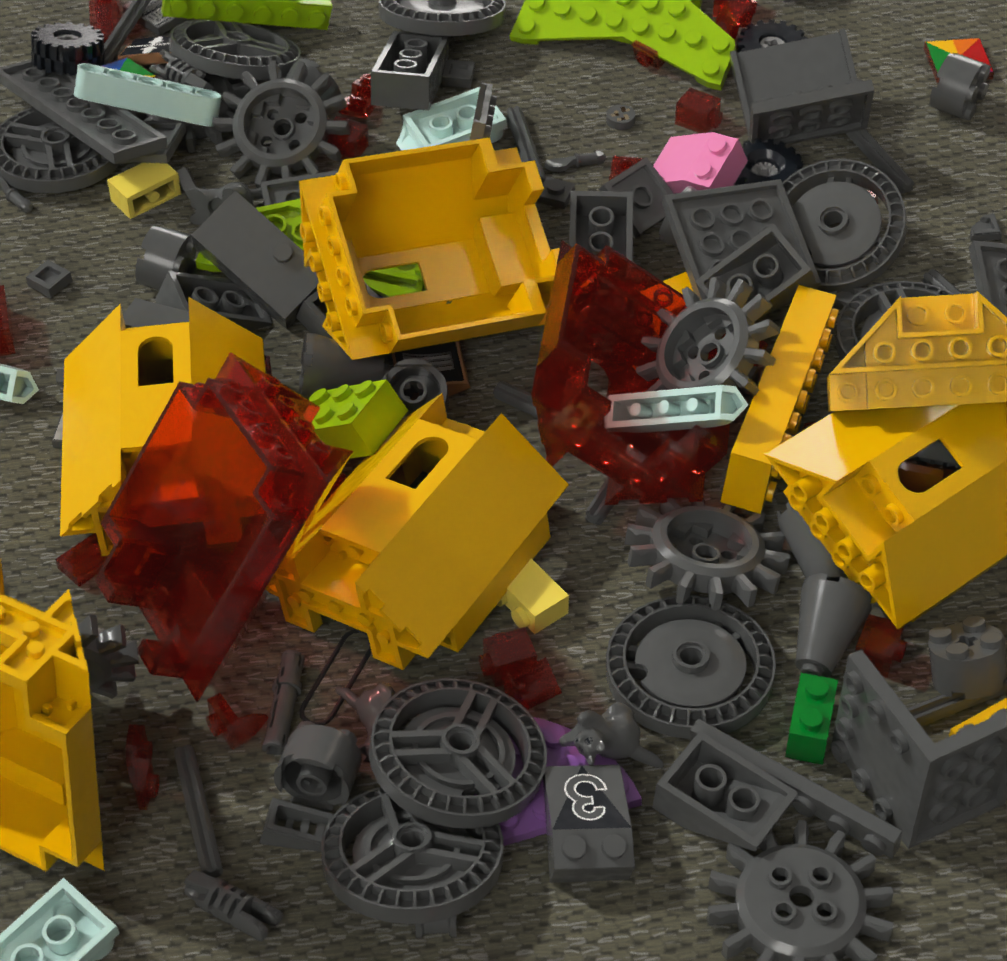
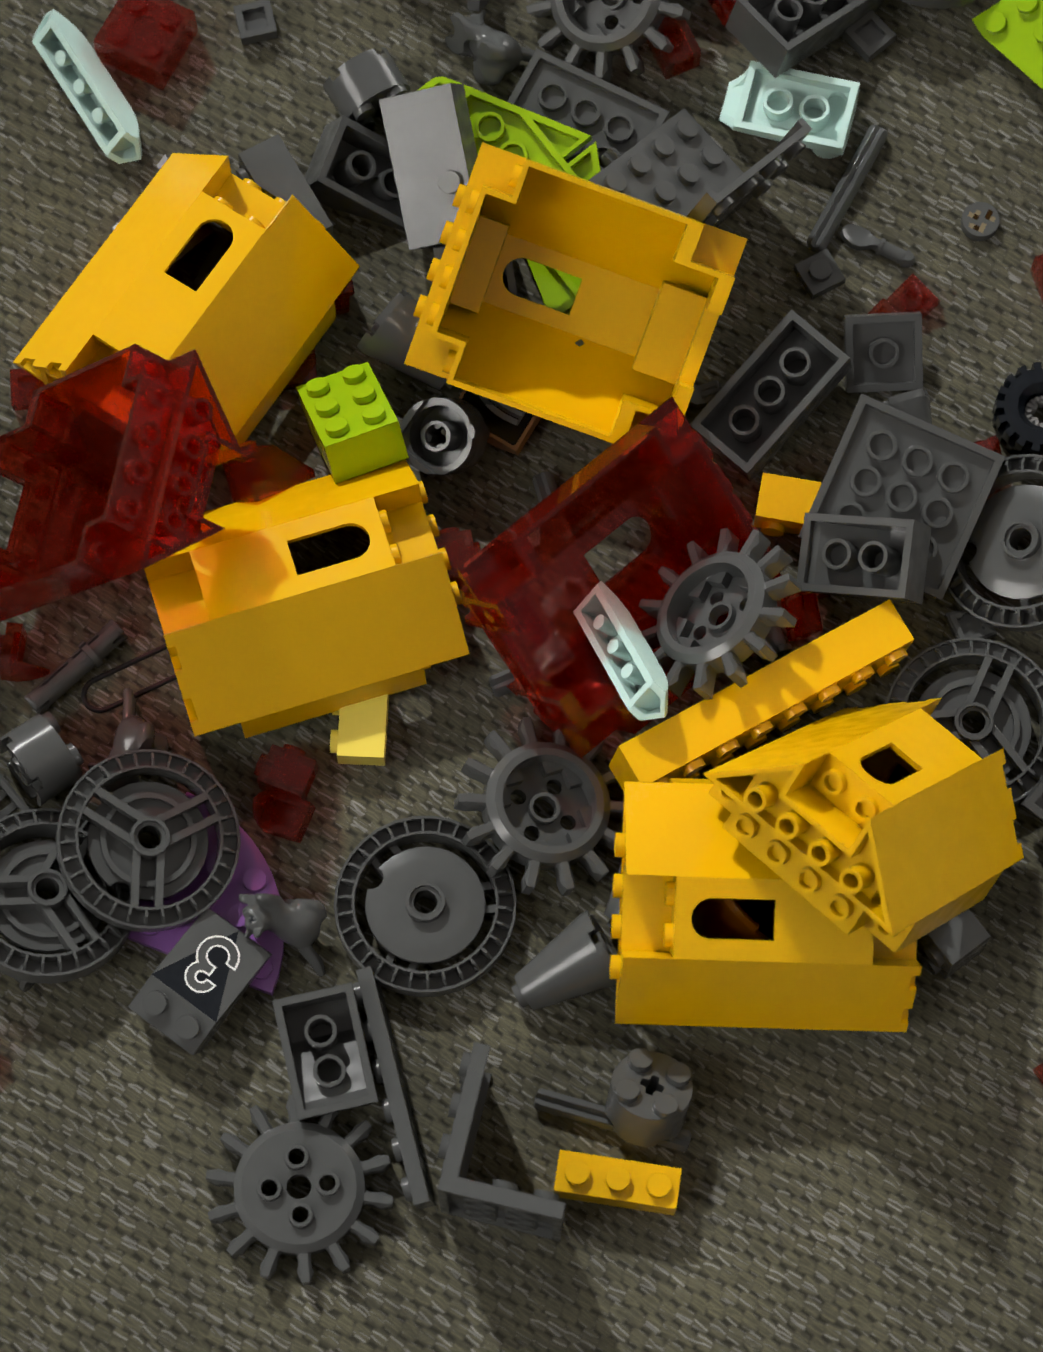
camera: 40 degrees right, 25 degrees up
(701, 161) = (968, 361): bright pink slope -> none
(811, 718) = (483, 1024): green brick -> none
(882, 643) = (596, 1020): clear red brick -> none

